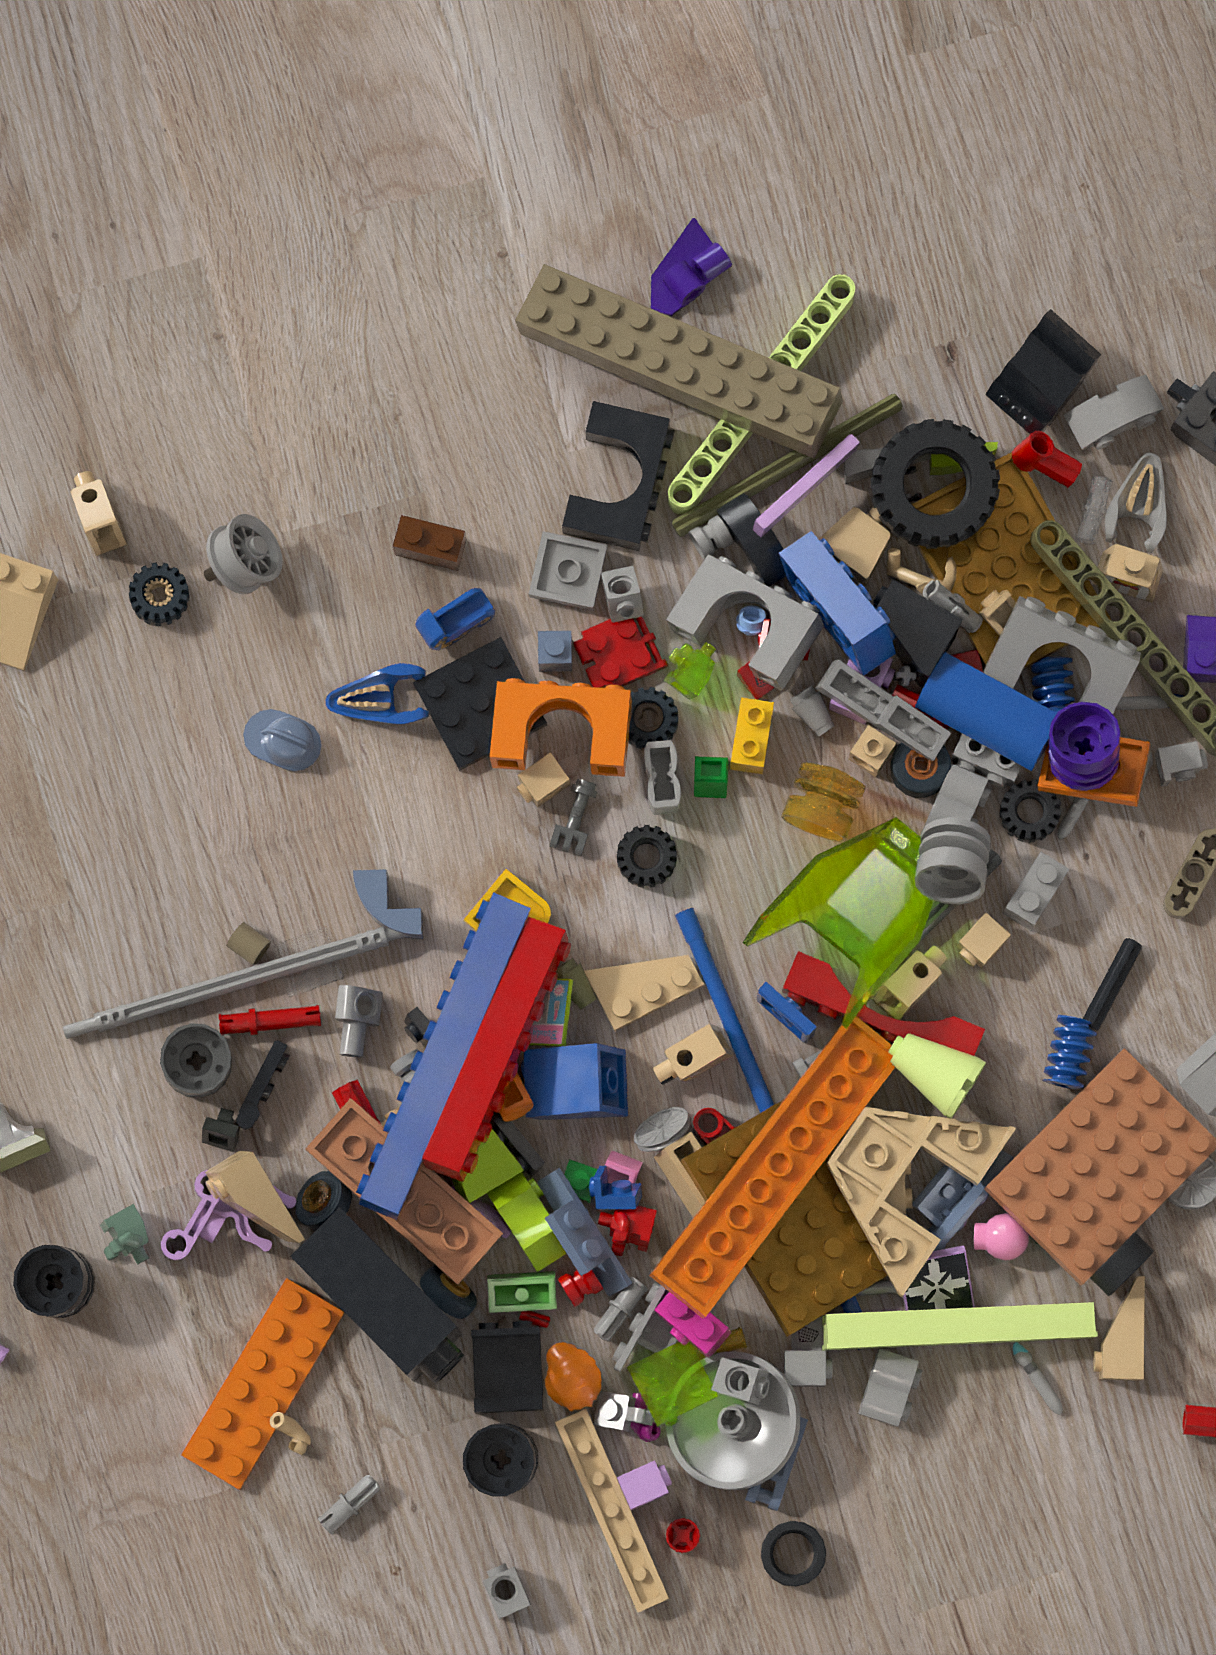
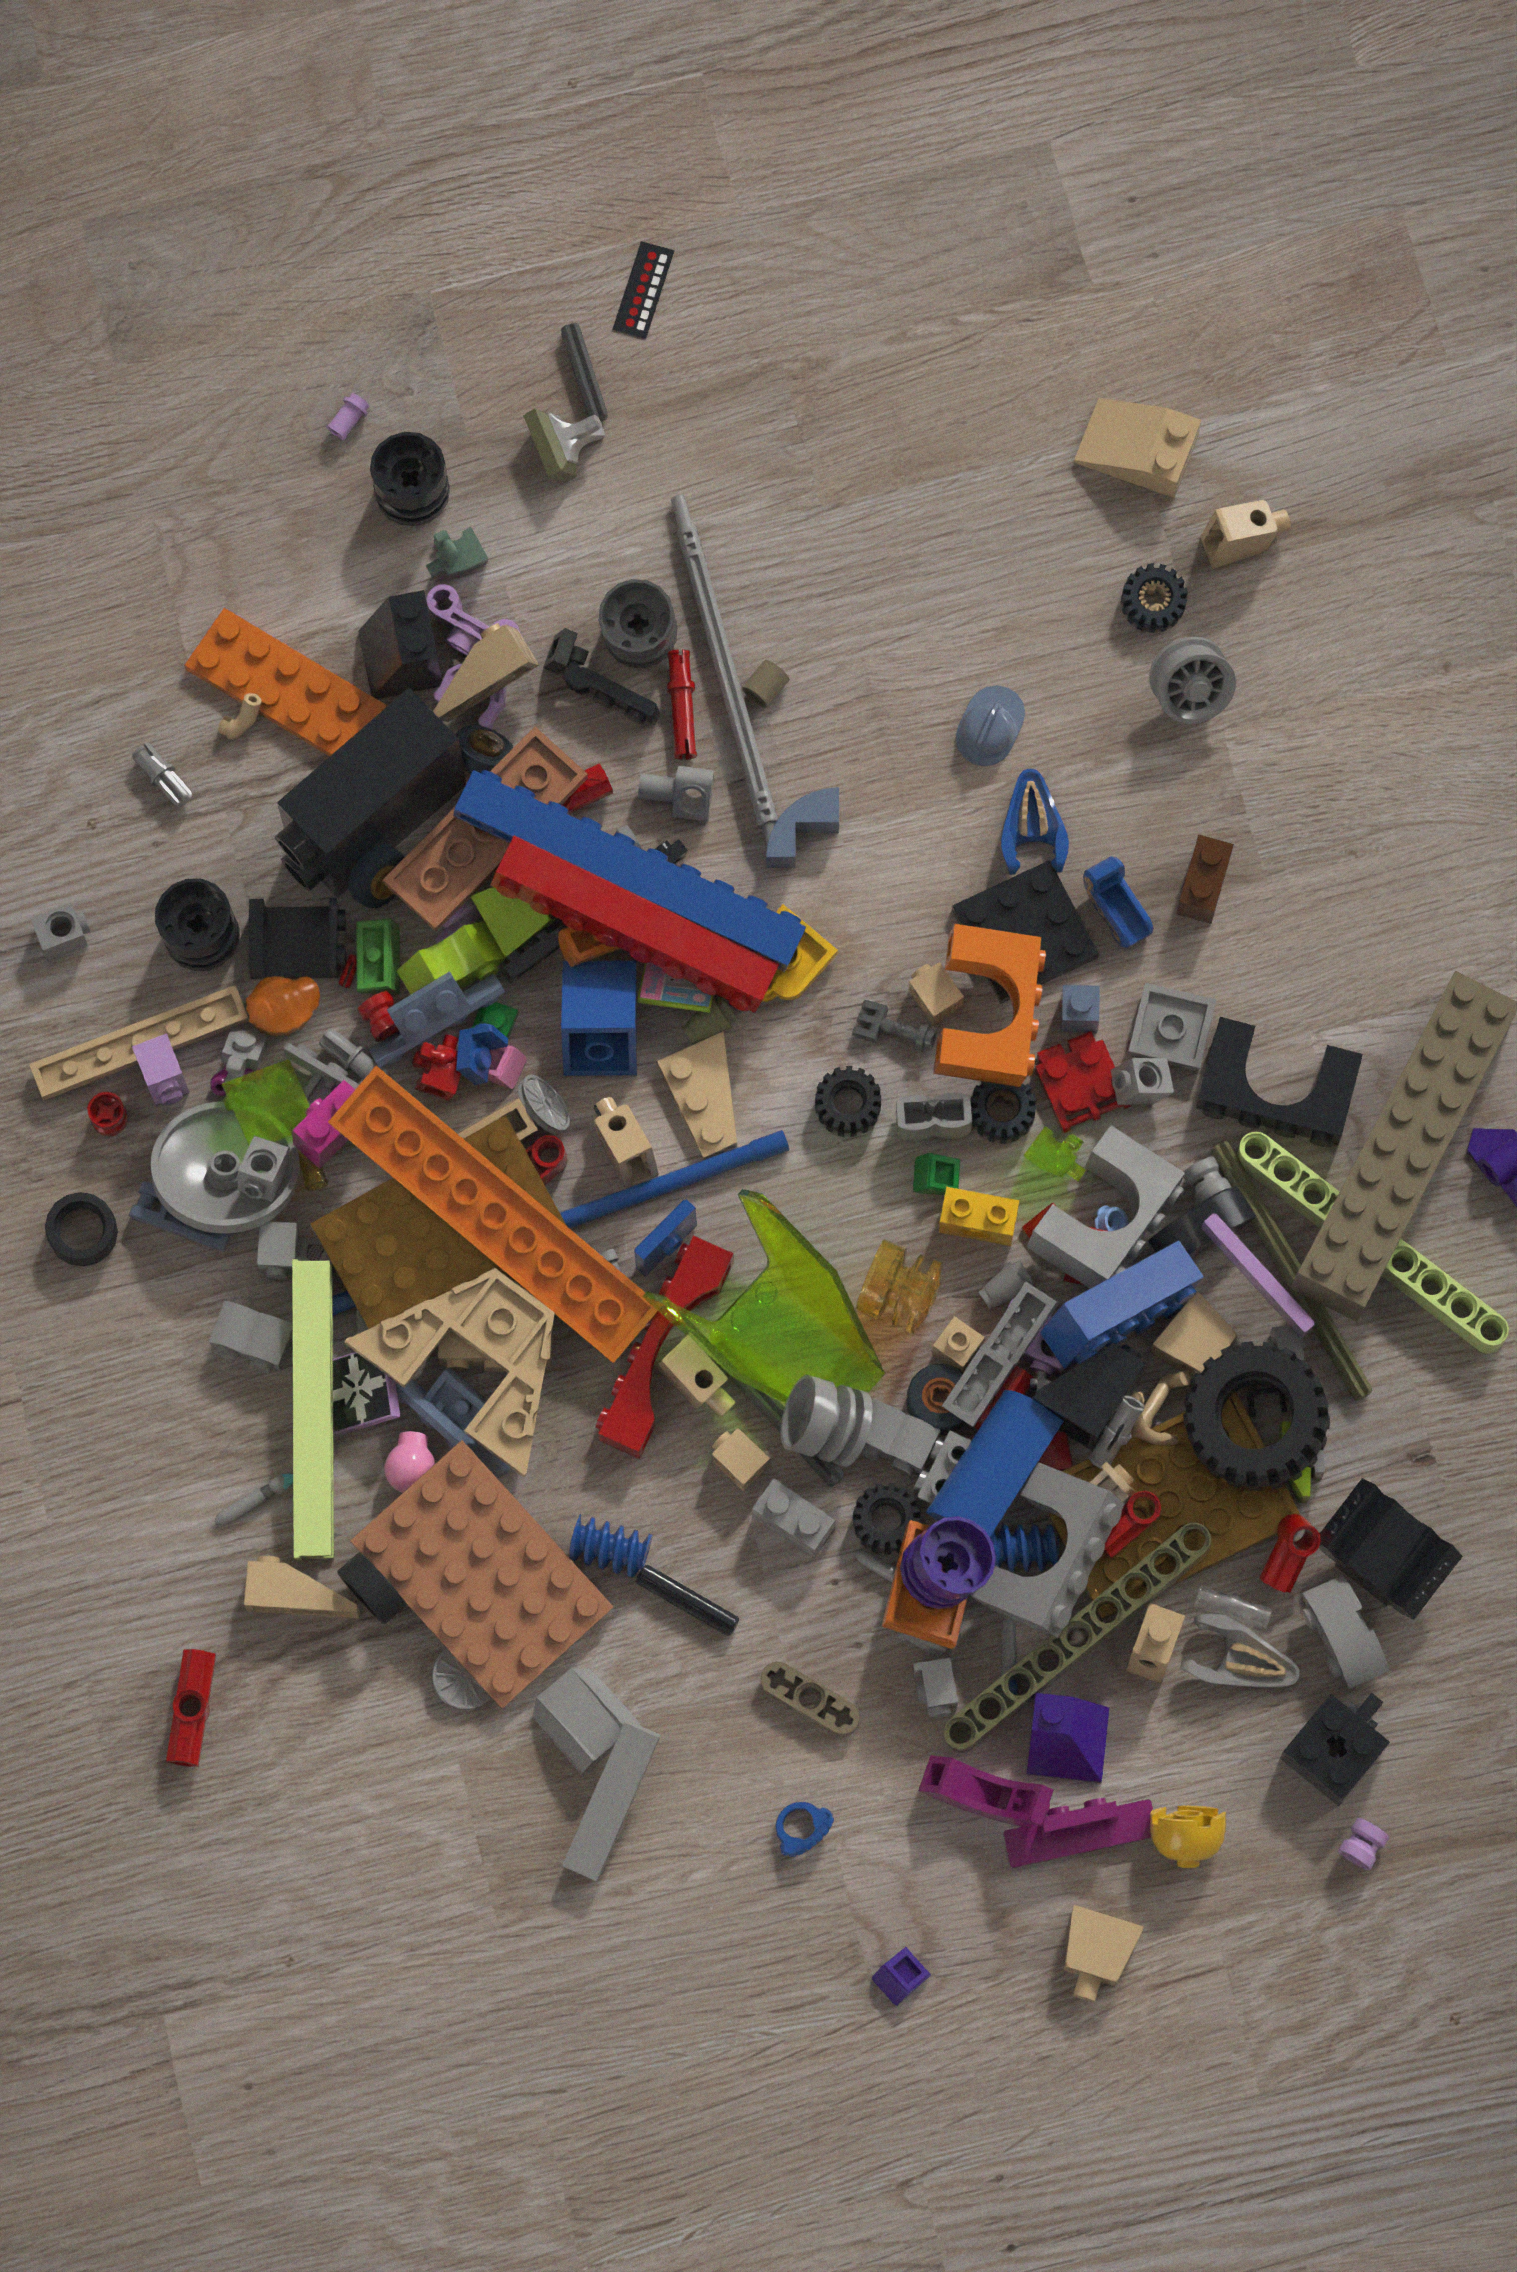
camera: 90 degrees right, 5 degrees down
(223, 1282) = (400, 647): none -> black slope
(936, 1071) = (590, 1392): yellowish green cone -> none
(1032, 589) = (1130, 1525): none -> red piece

